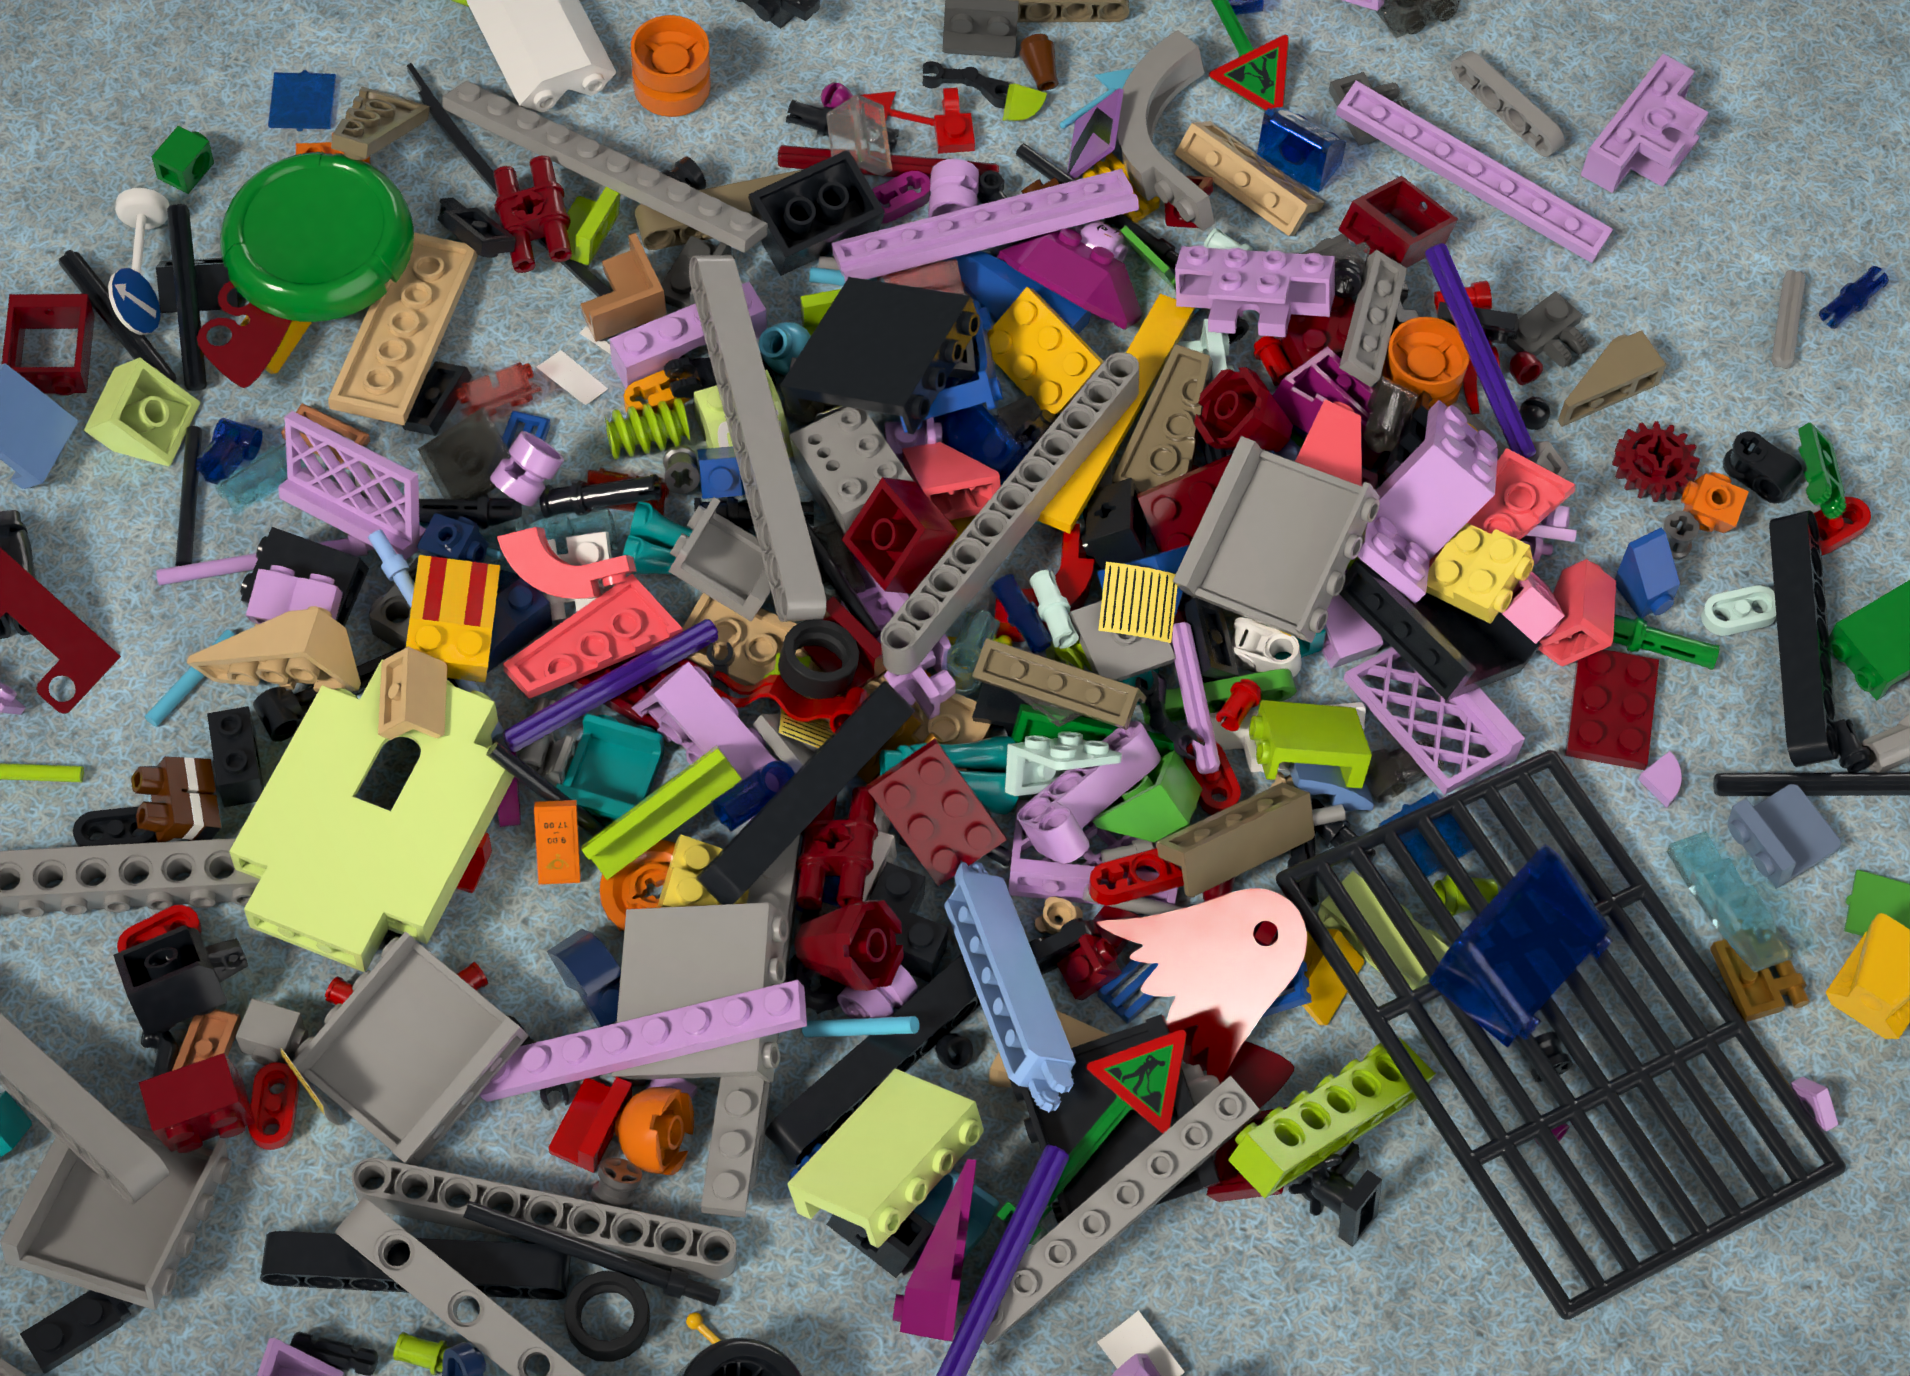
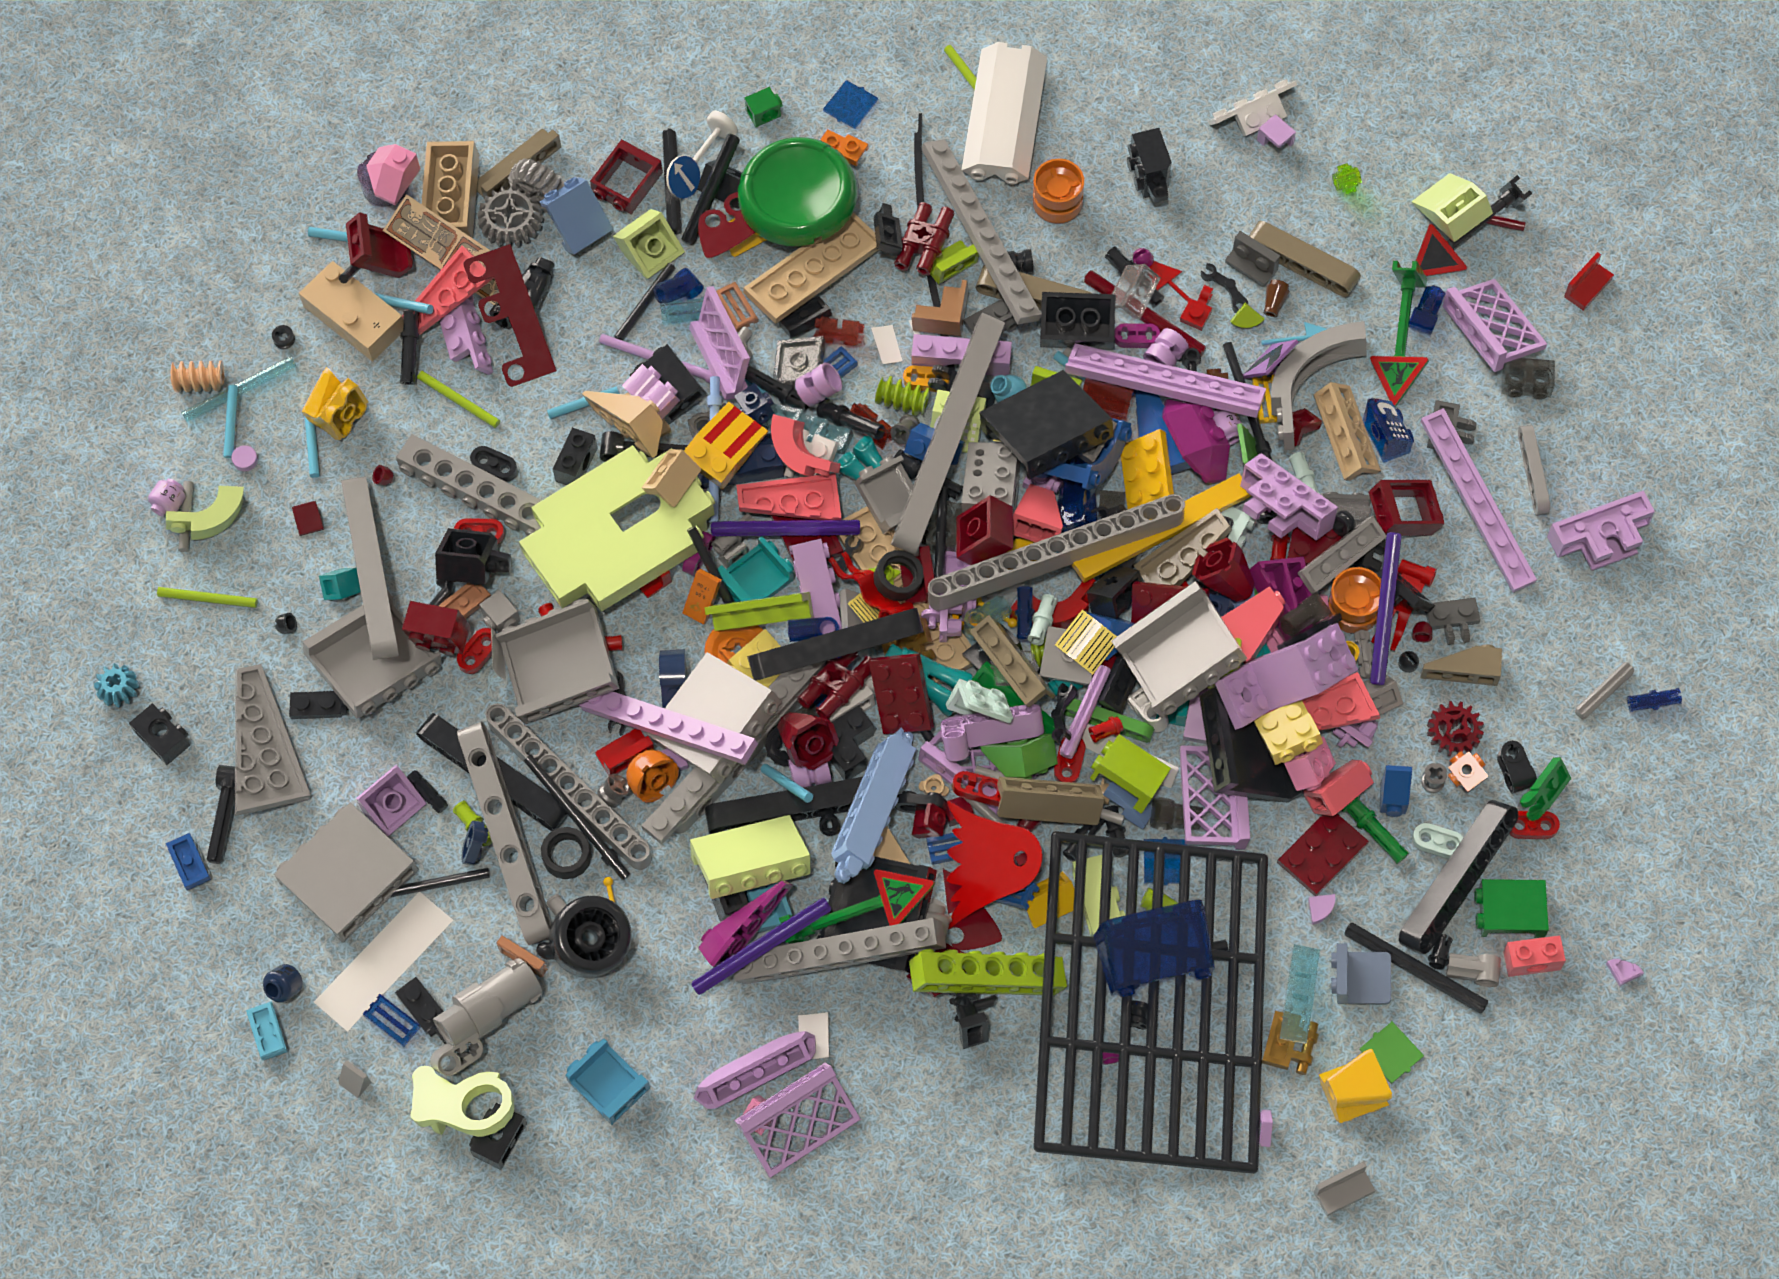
camera: 40 degrees right, 5 degrees up
(180, 799) = (533, 465): reddish brown hips -> none
(376, 122) = (875, 140): dark tan wing -> none

